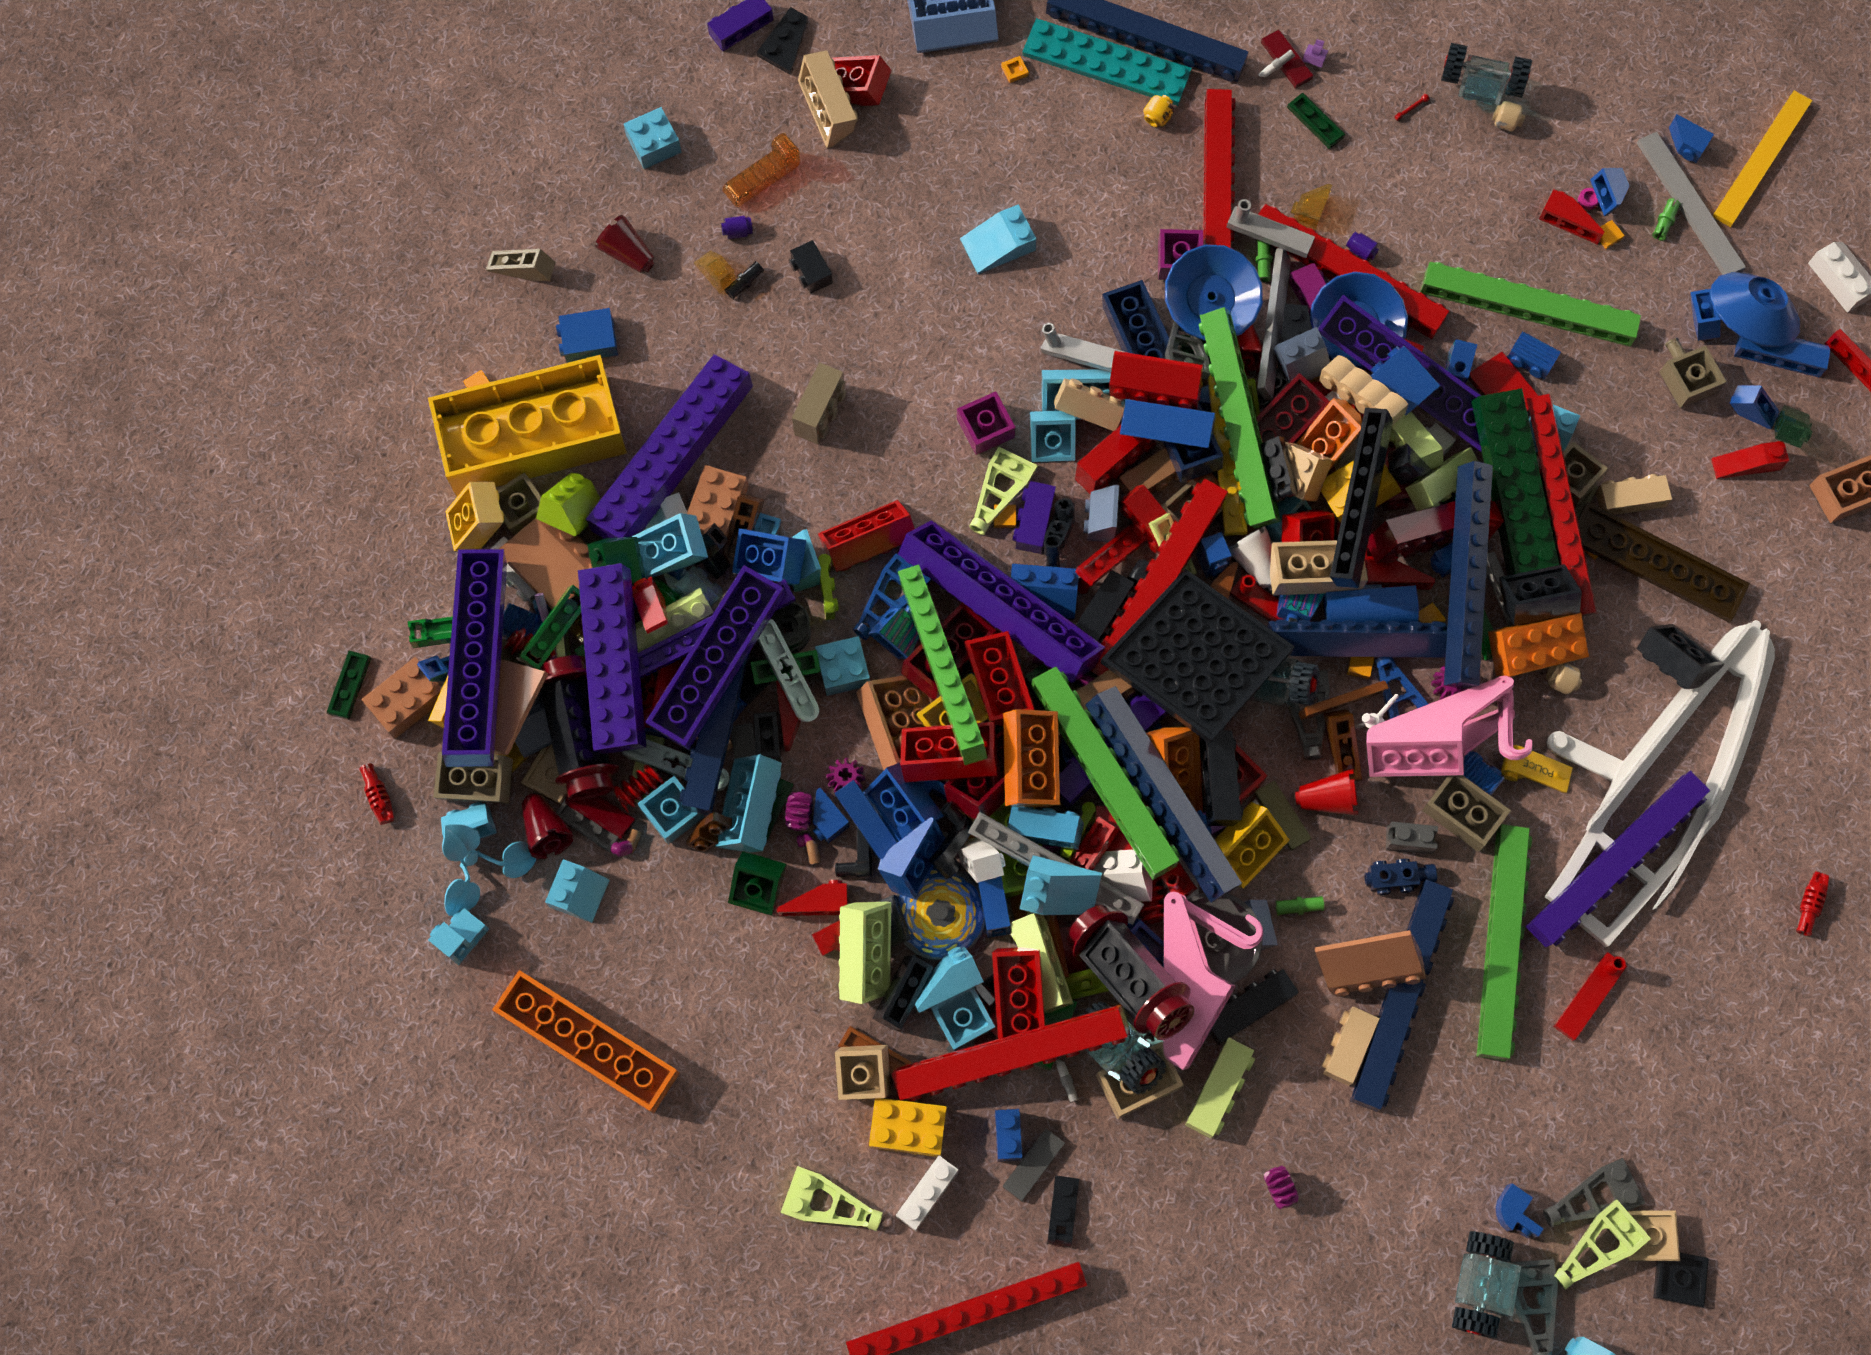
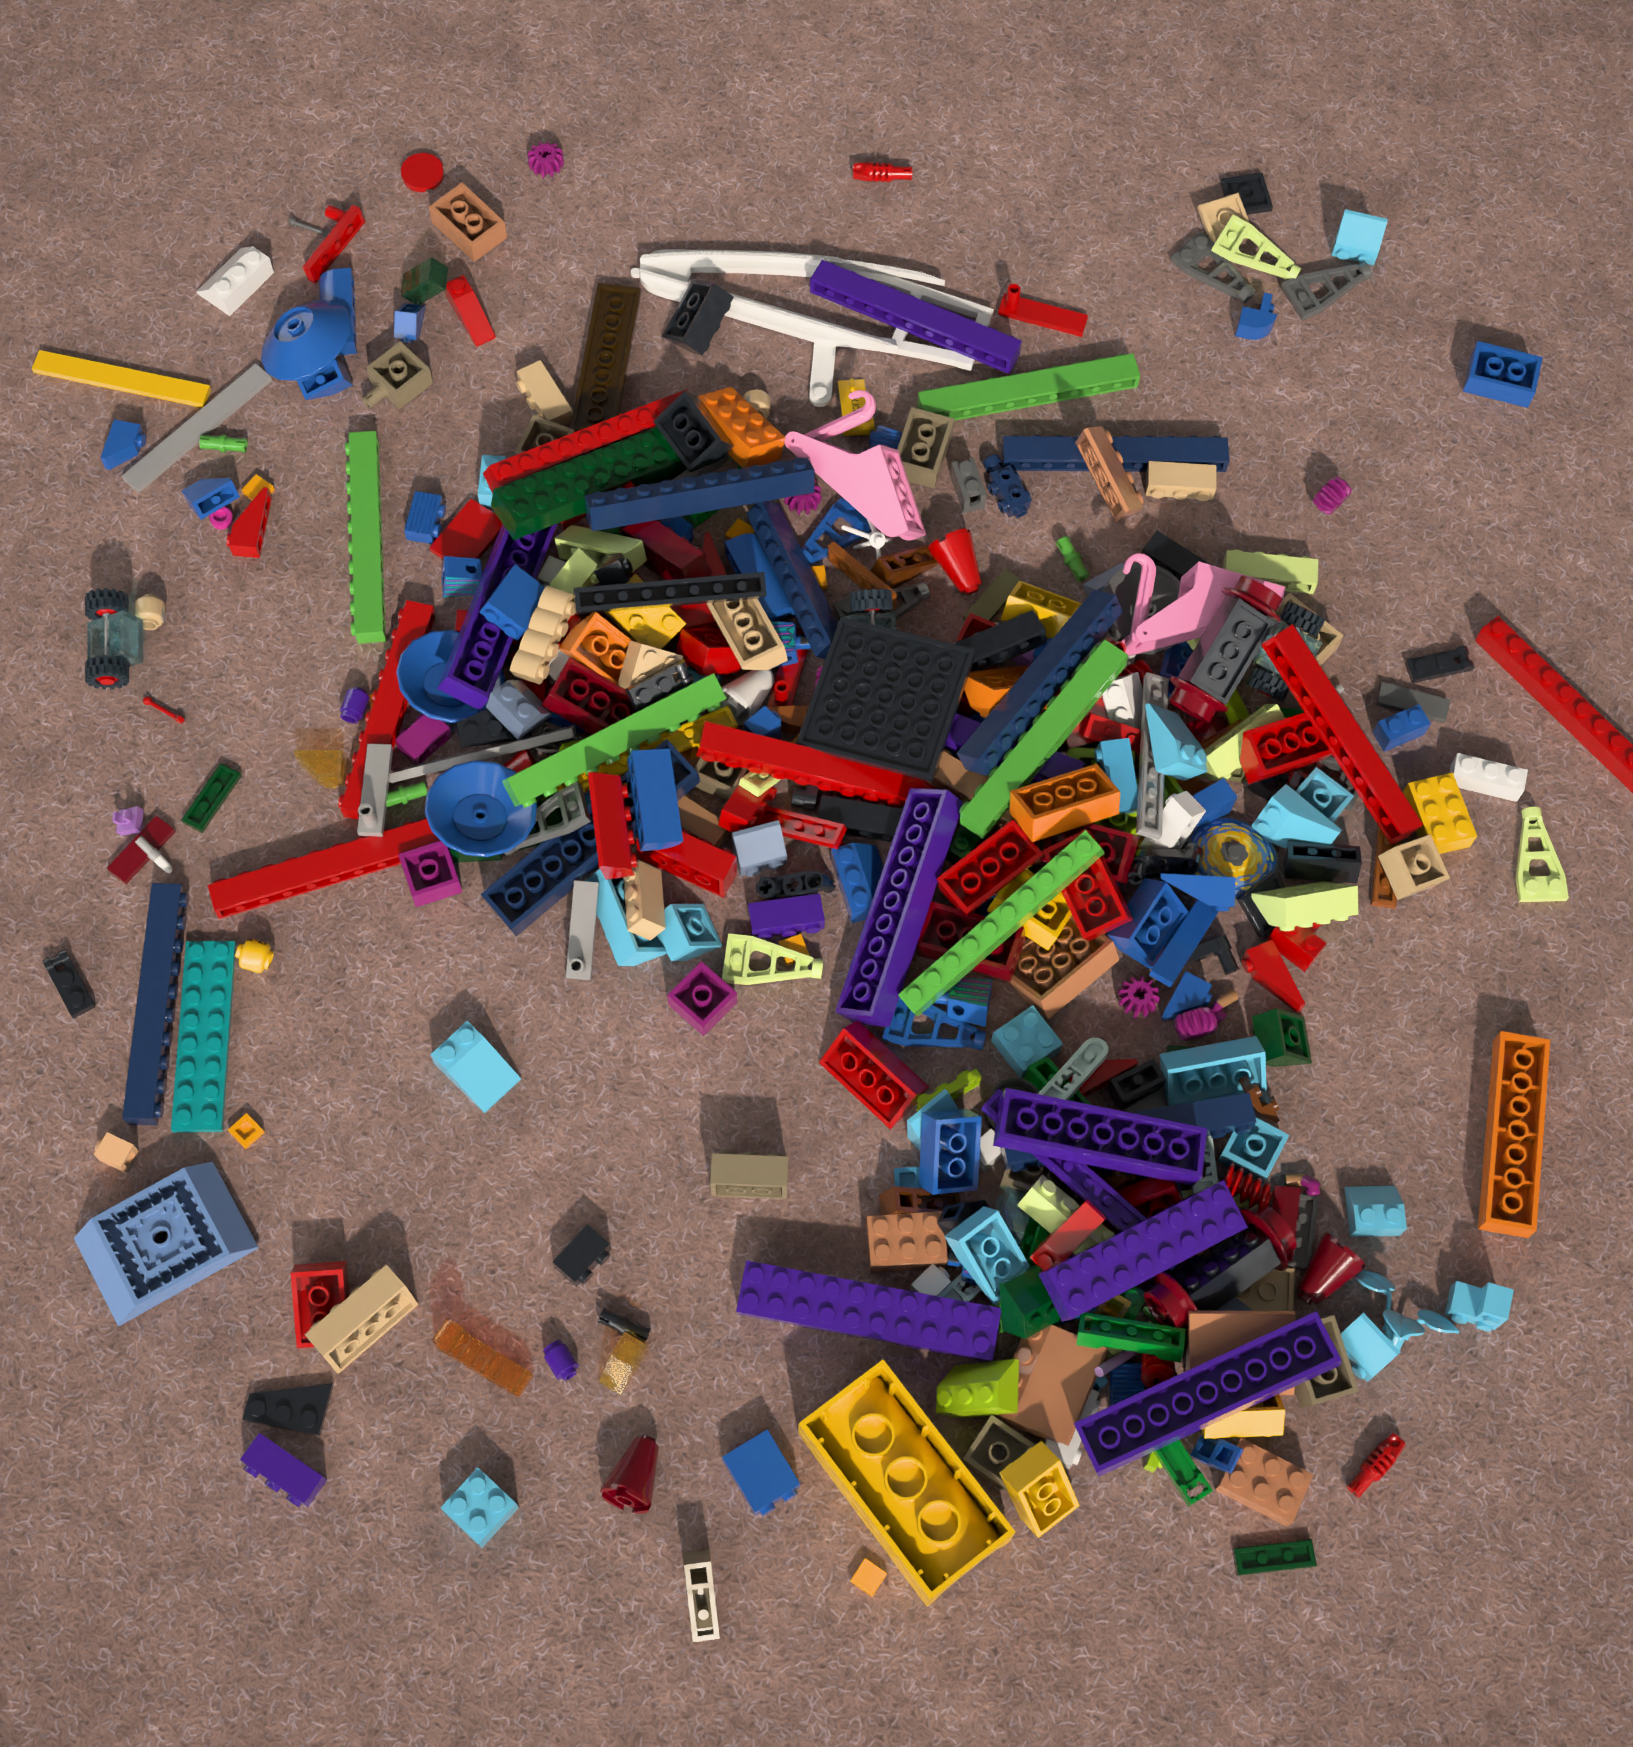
camera: 115 degrees left, 5 degrees down
(1486, 1284) = (1332, 318): brick -> none

